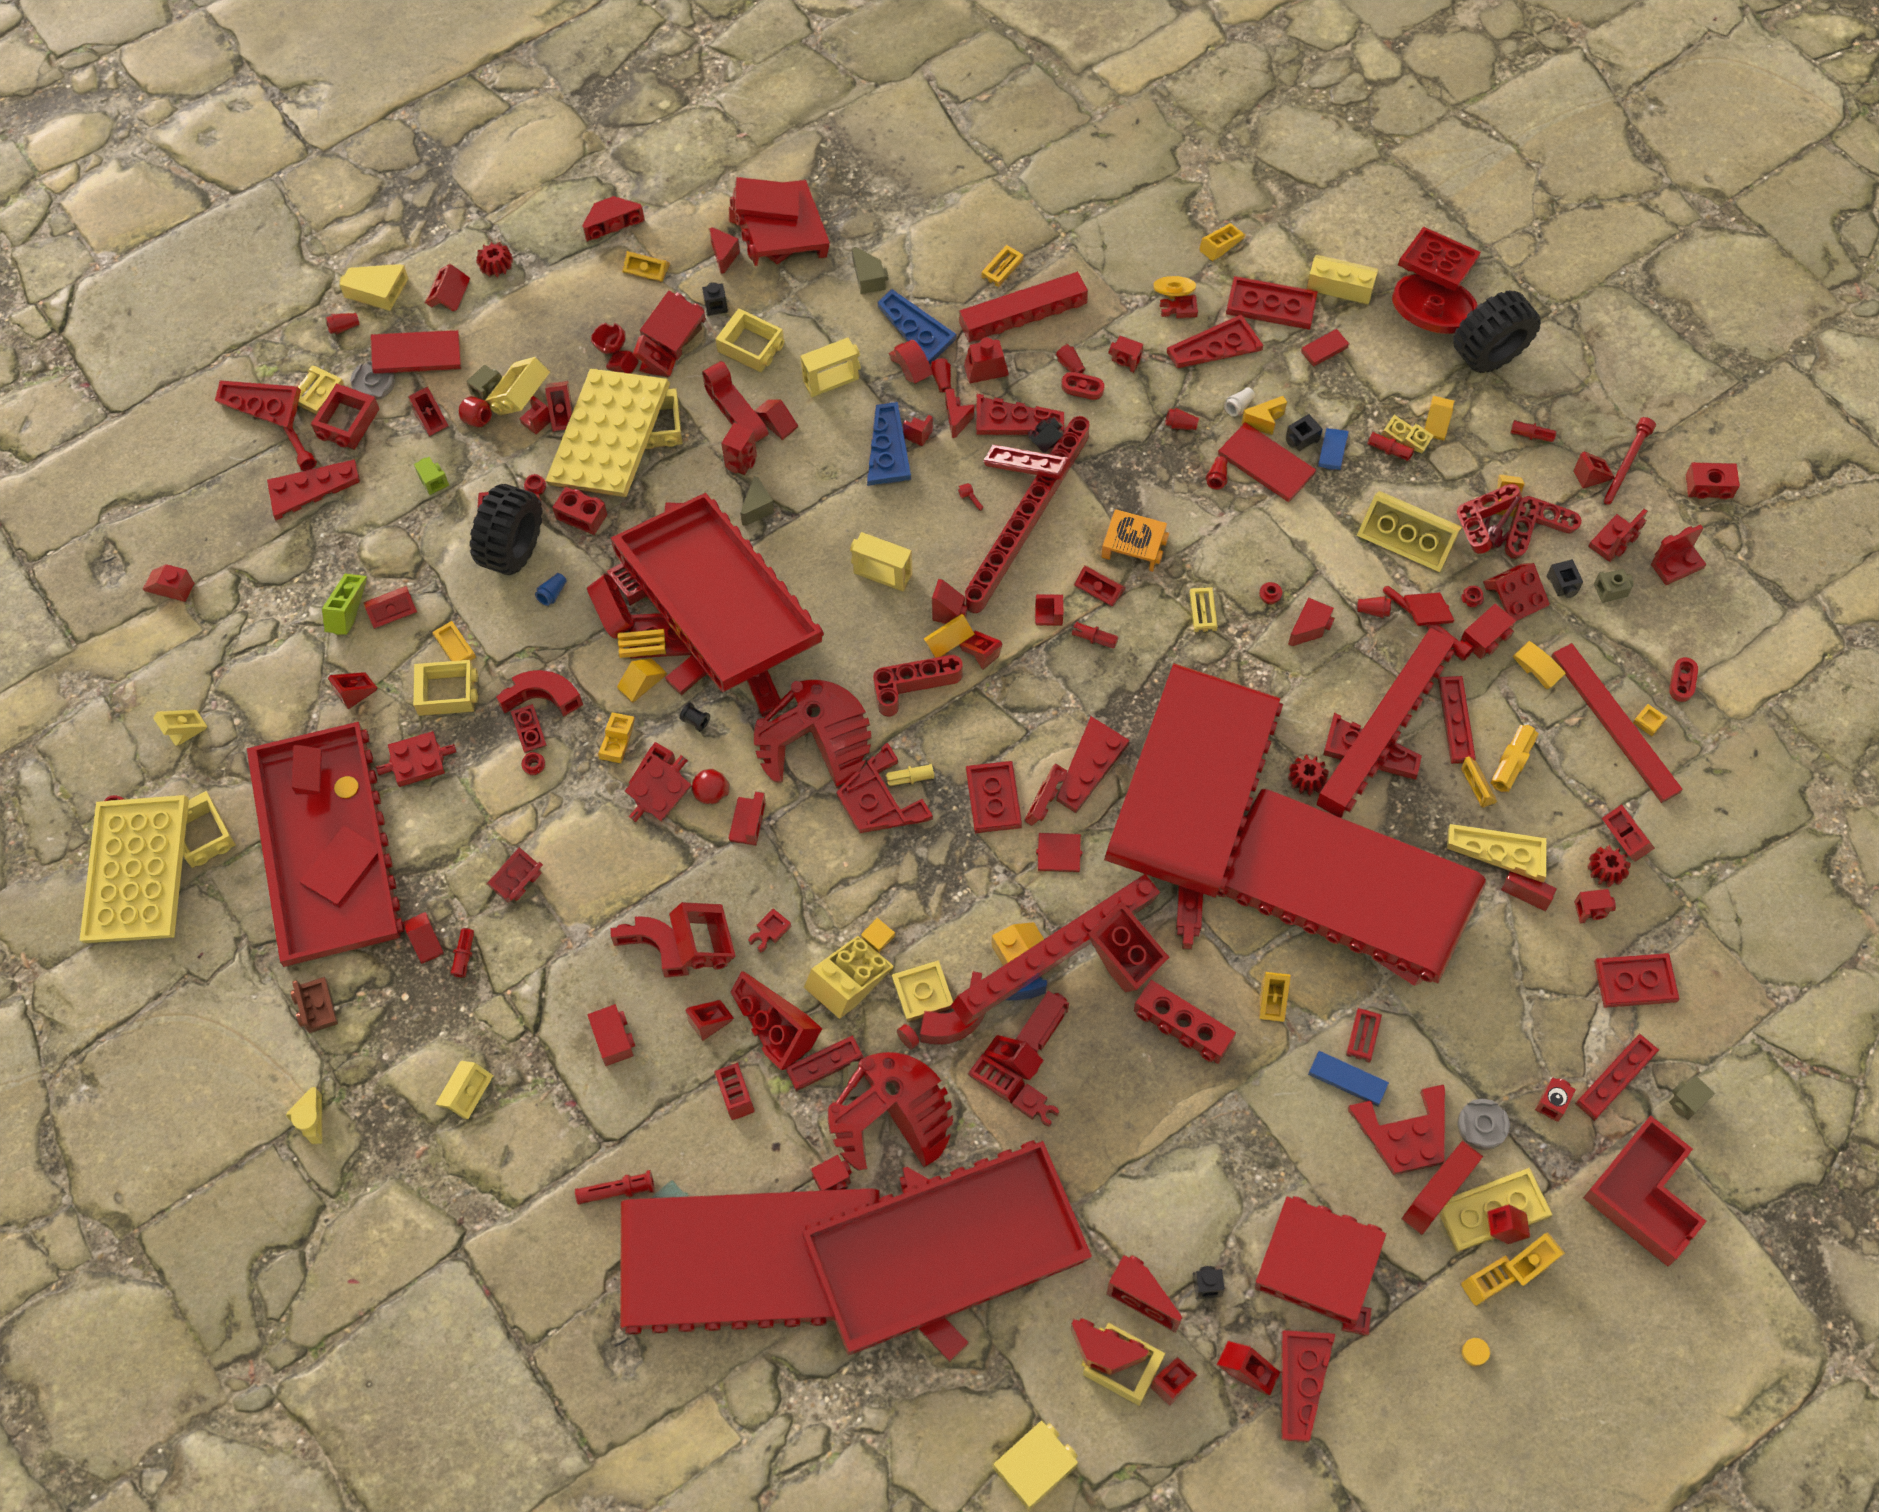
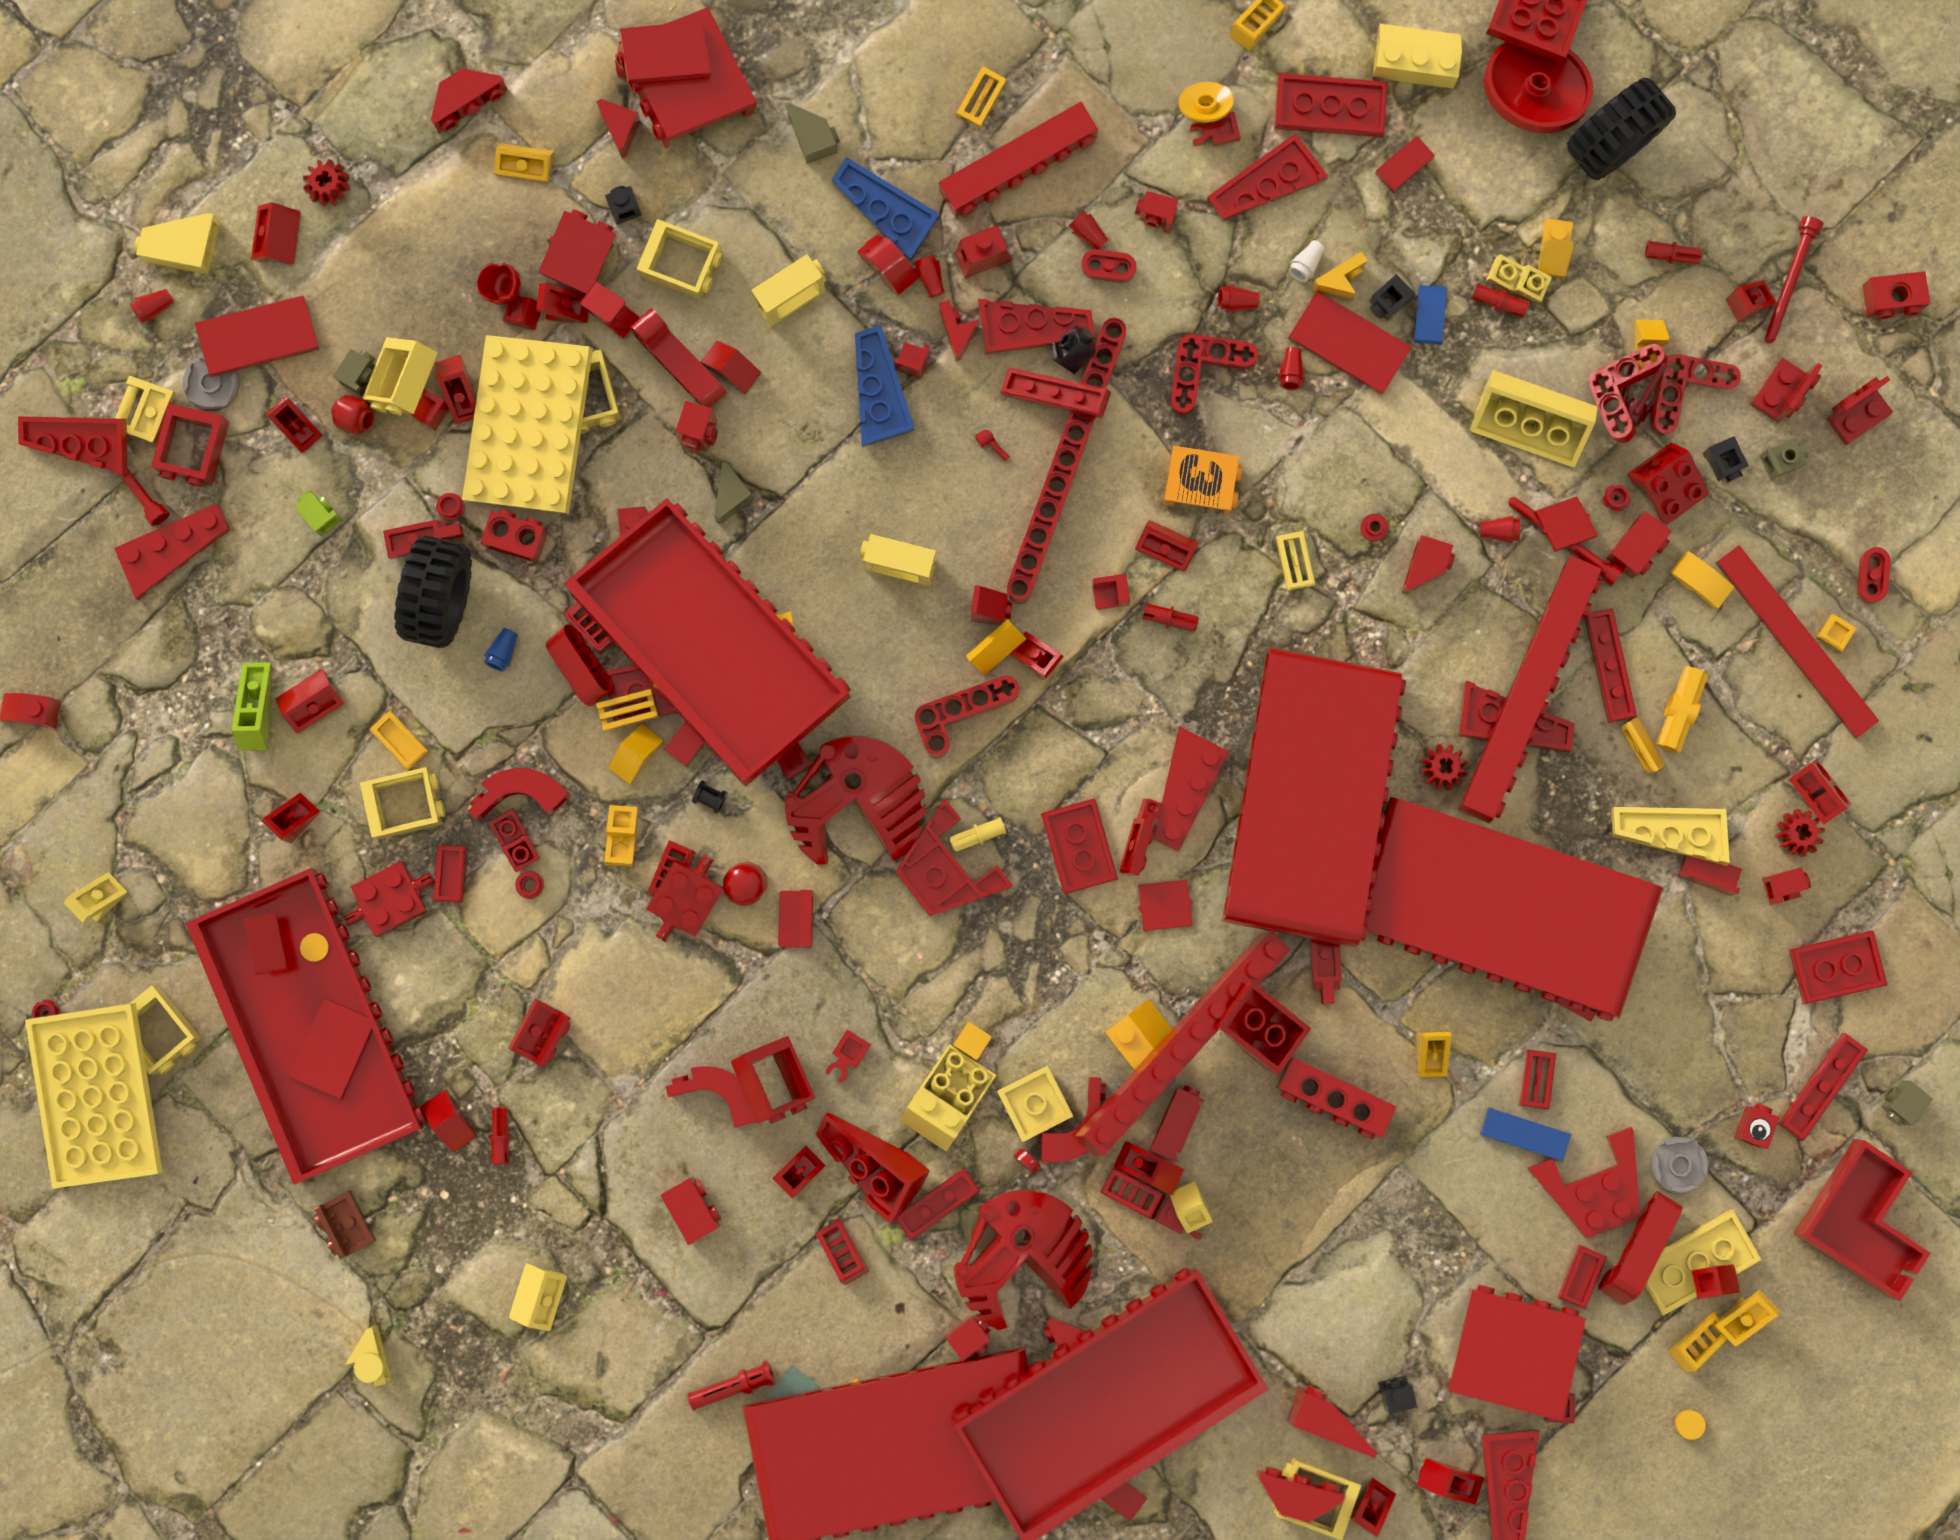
camera: 10 degrees left, 20 degrees up
(470, 747) = (450, 873): none -> red tile
(688, 365) = (609, 309): none -> red slope
(1045, 1092) = (1191, 1207): none -> light yellow panel
(1147, 455) = (1203, 356): none -> red beam
(1388, 1206) = (1582, 1276): none -> red tile

